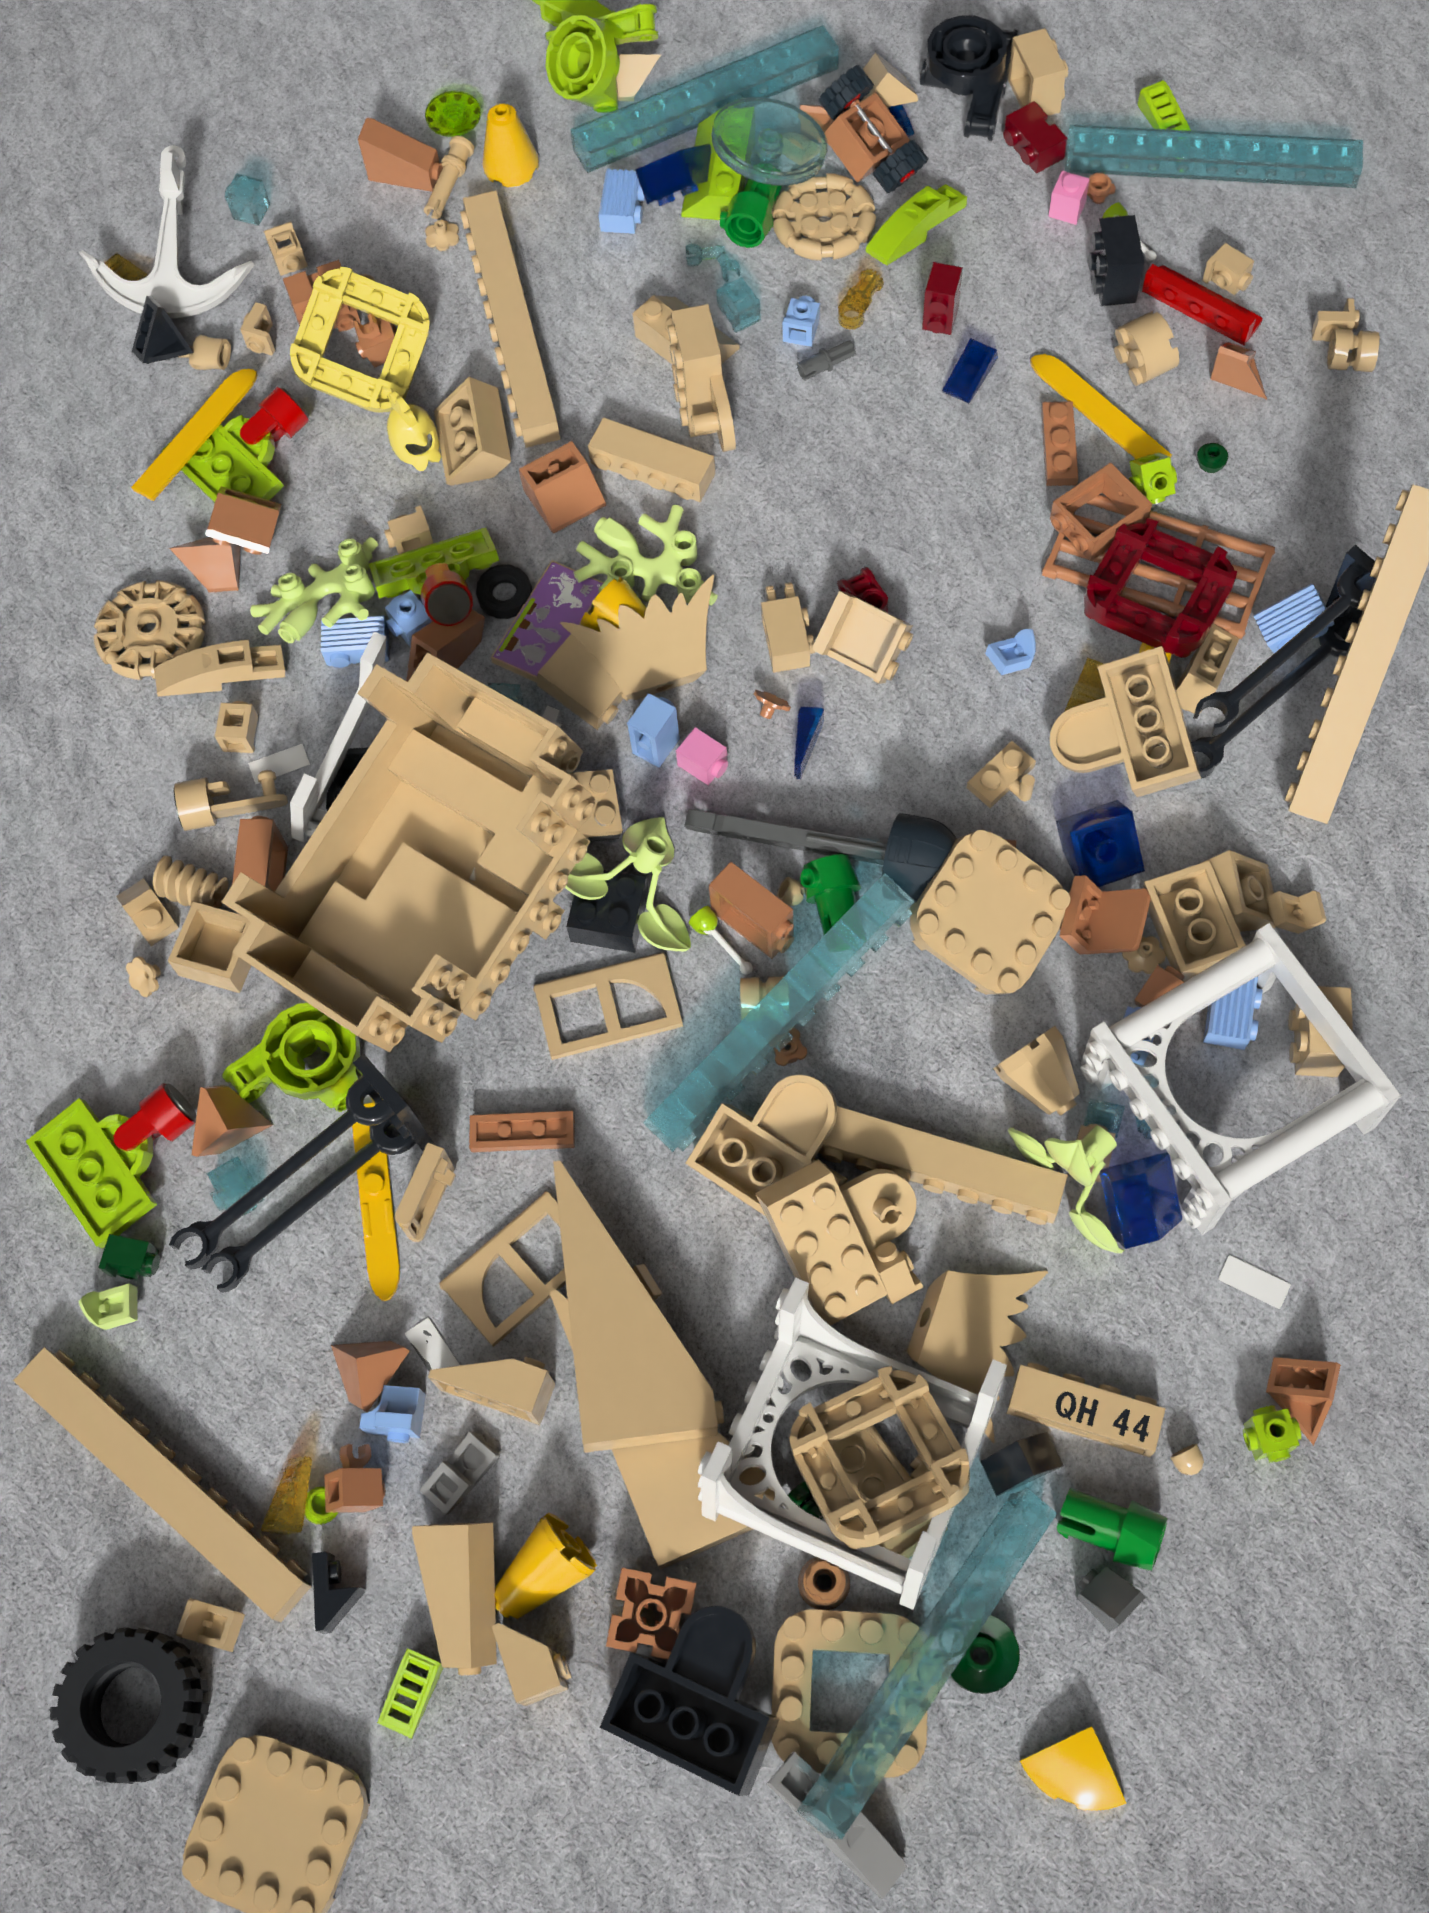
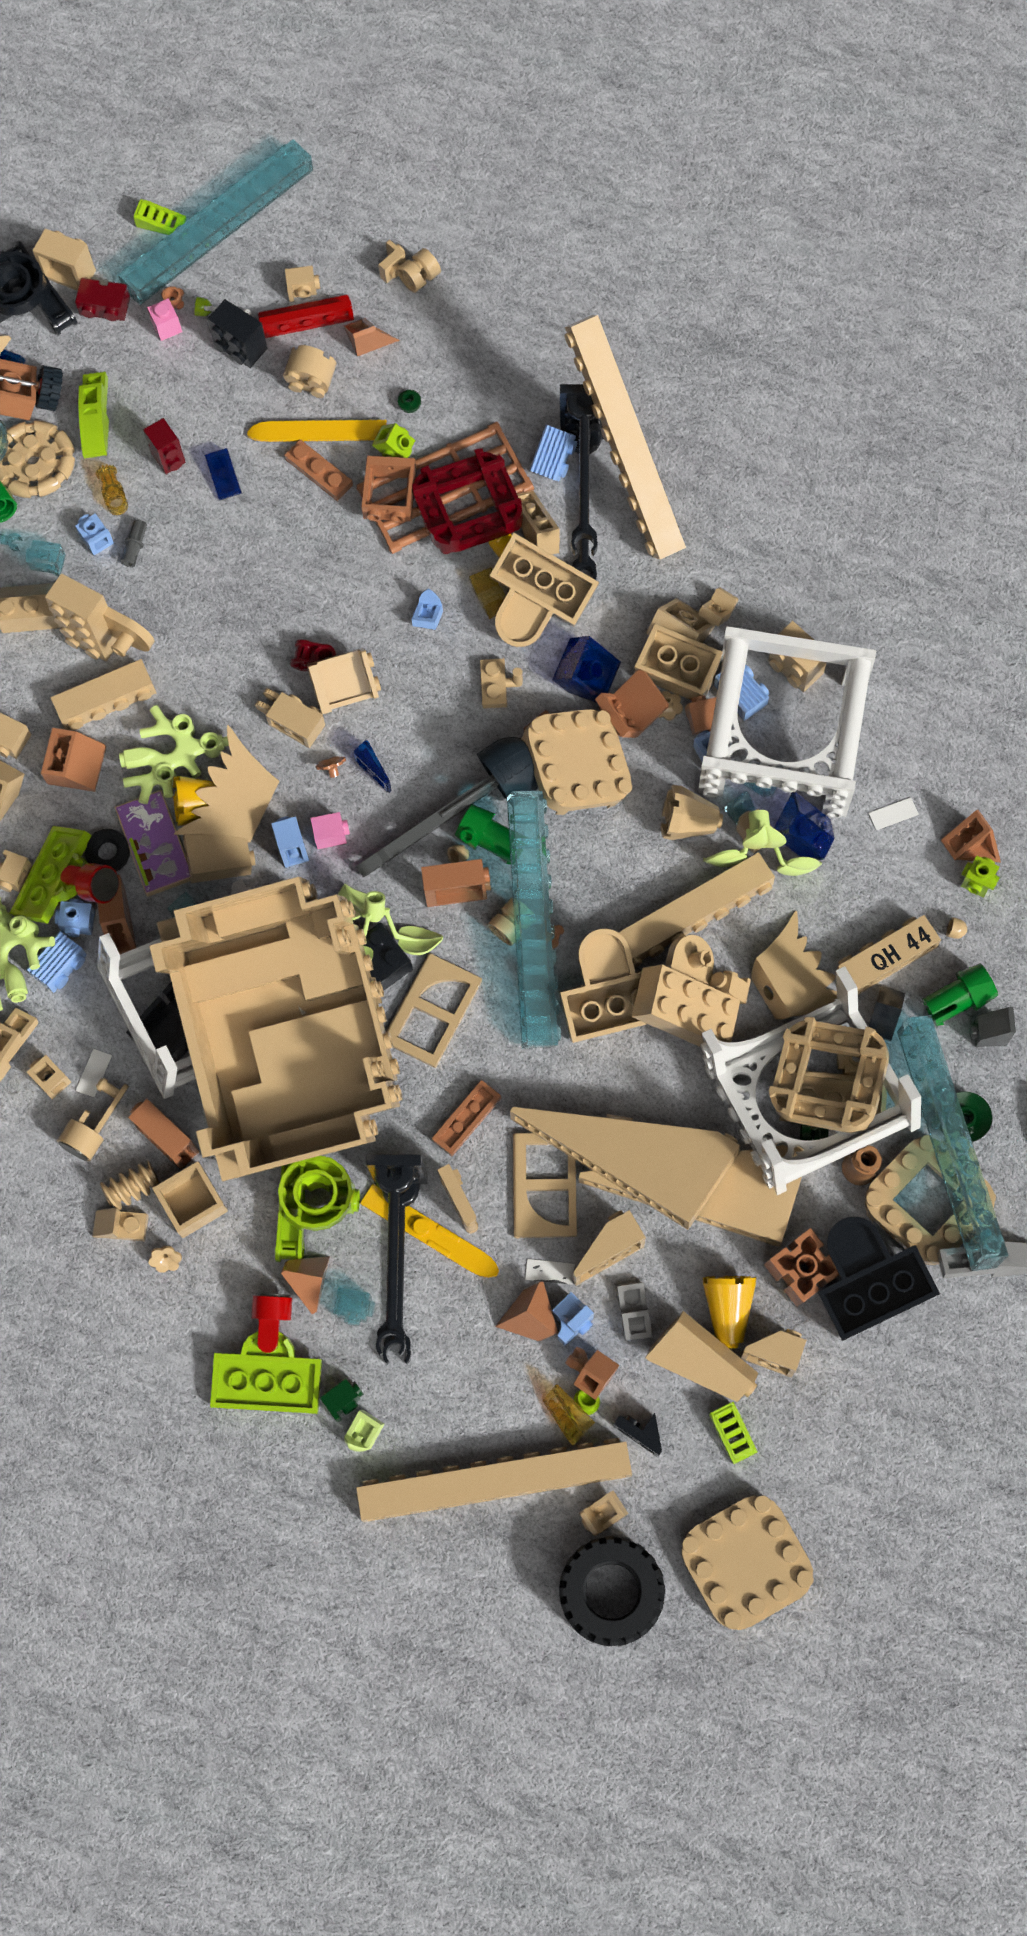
camera: 50 degrees left, 5 degrees up
(705, 923) = (434, 915): hinge -> none

